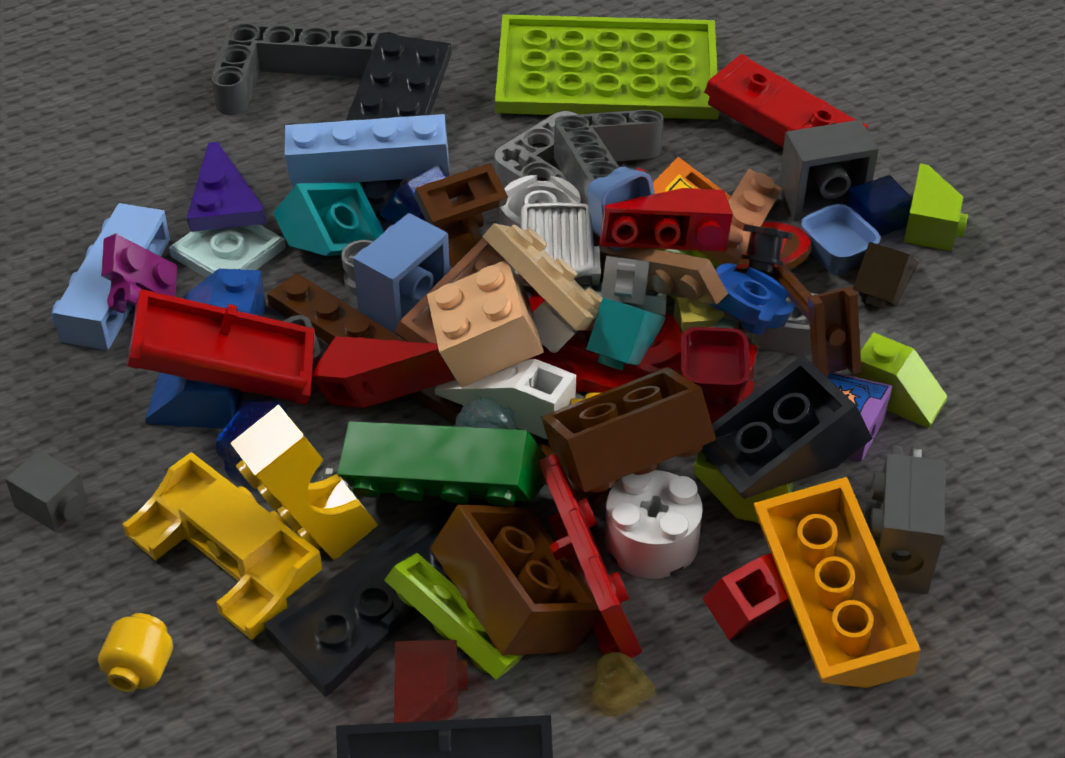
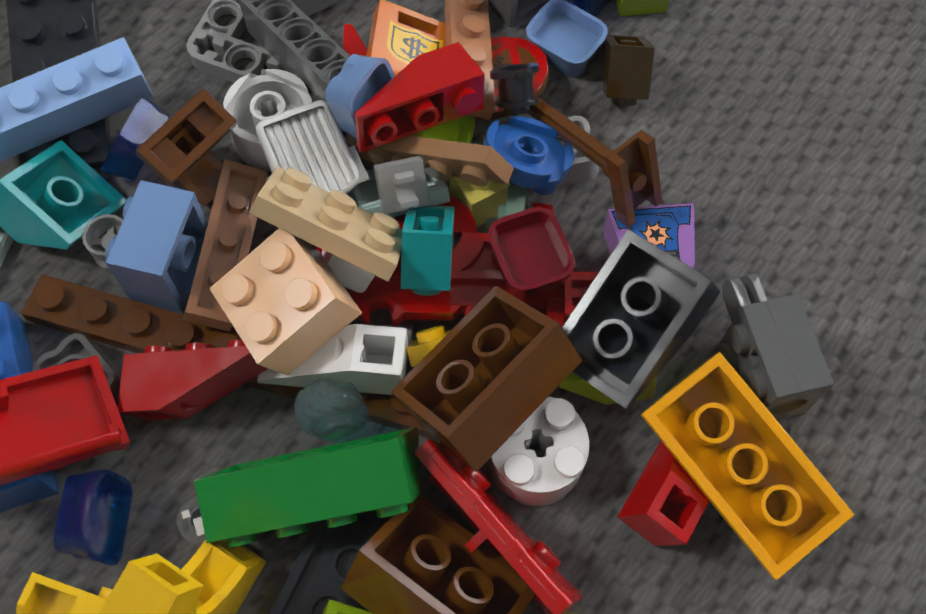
camera: 25 degrees left, 20 degrees up
(914, 389) = (692, 180): lime slope -> none

